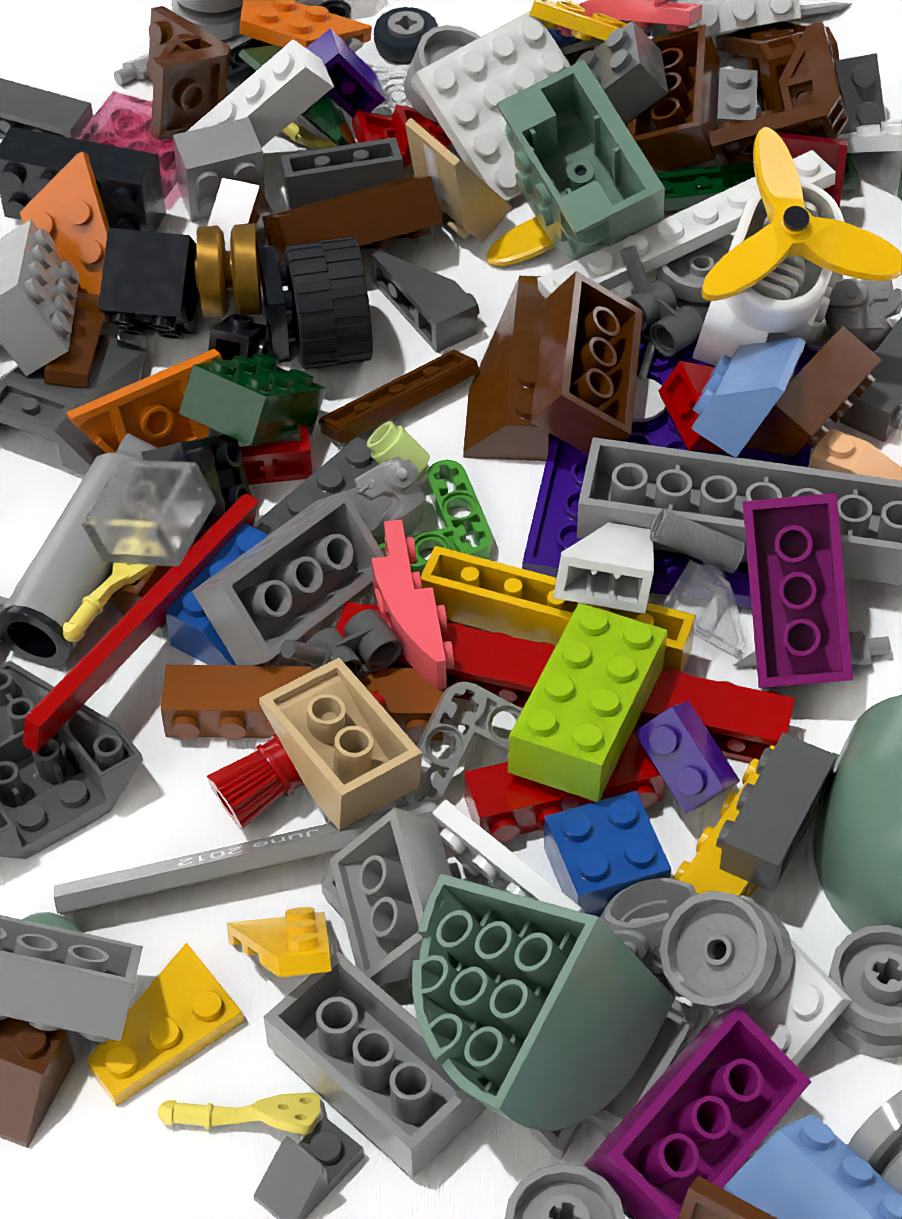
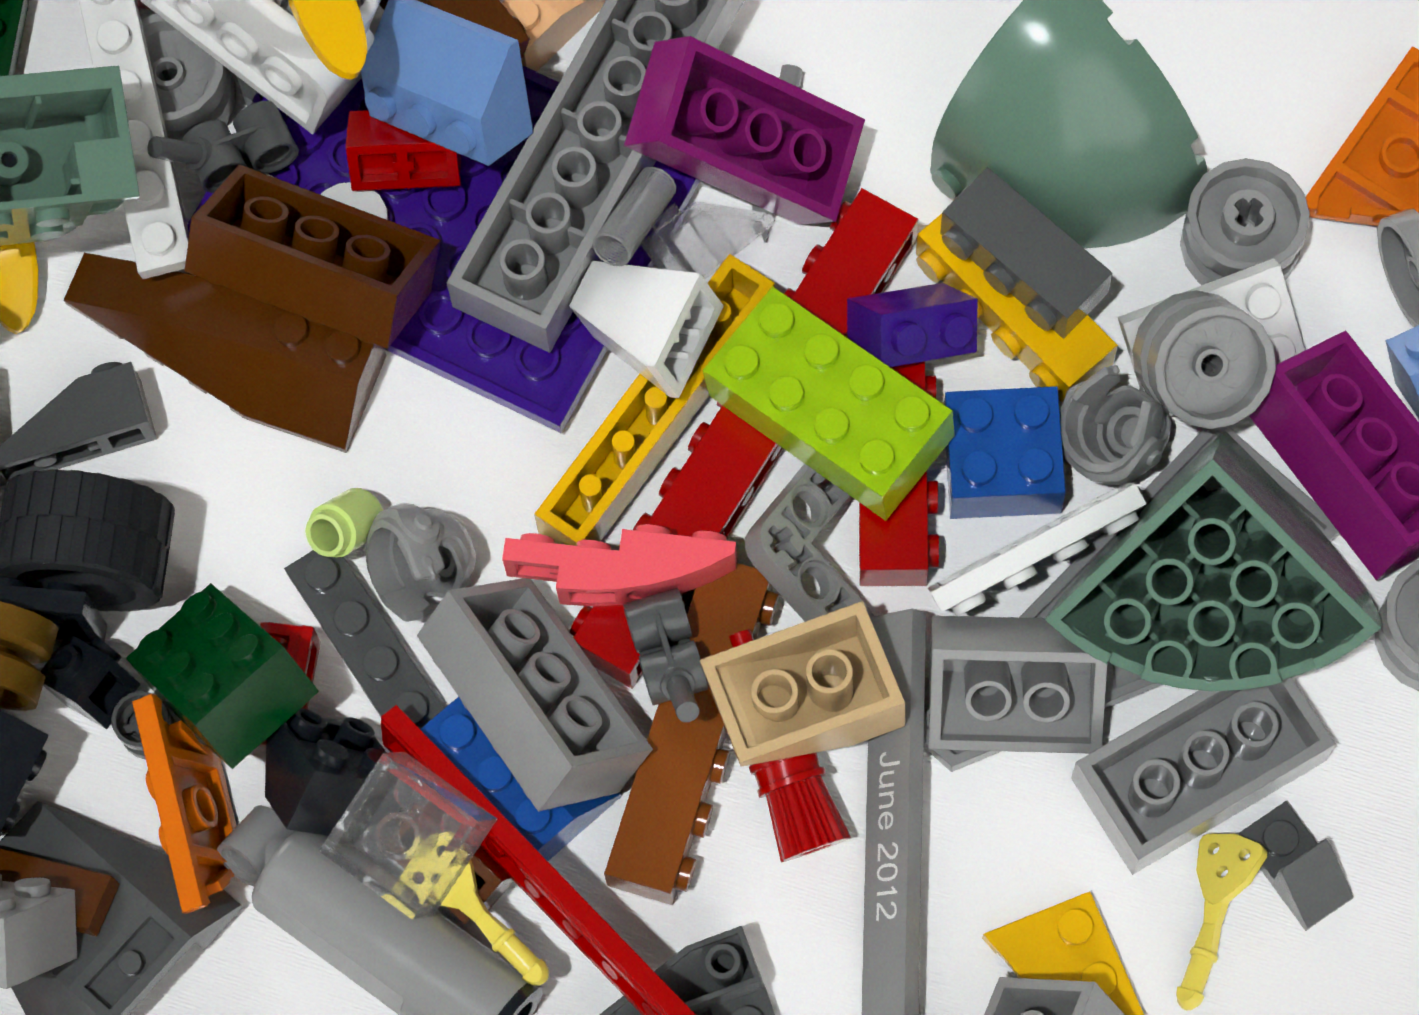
camera: 70 degrees left, 20 degrees up
(286, 943) = (1038, 811): yellow wing -> none
(398, 396) = (231, 502): reddish brown tile -> none
(454, 529) = (486, 500): bright green beam -> none

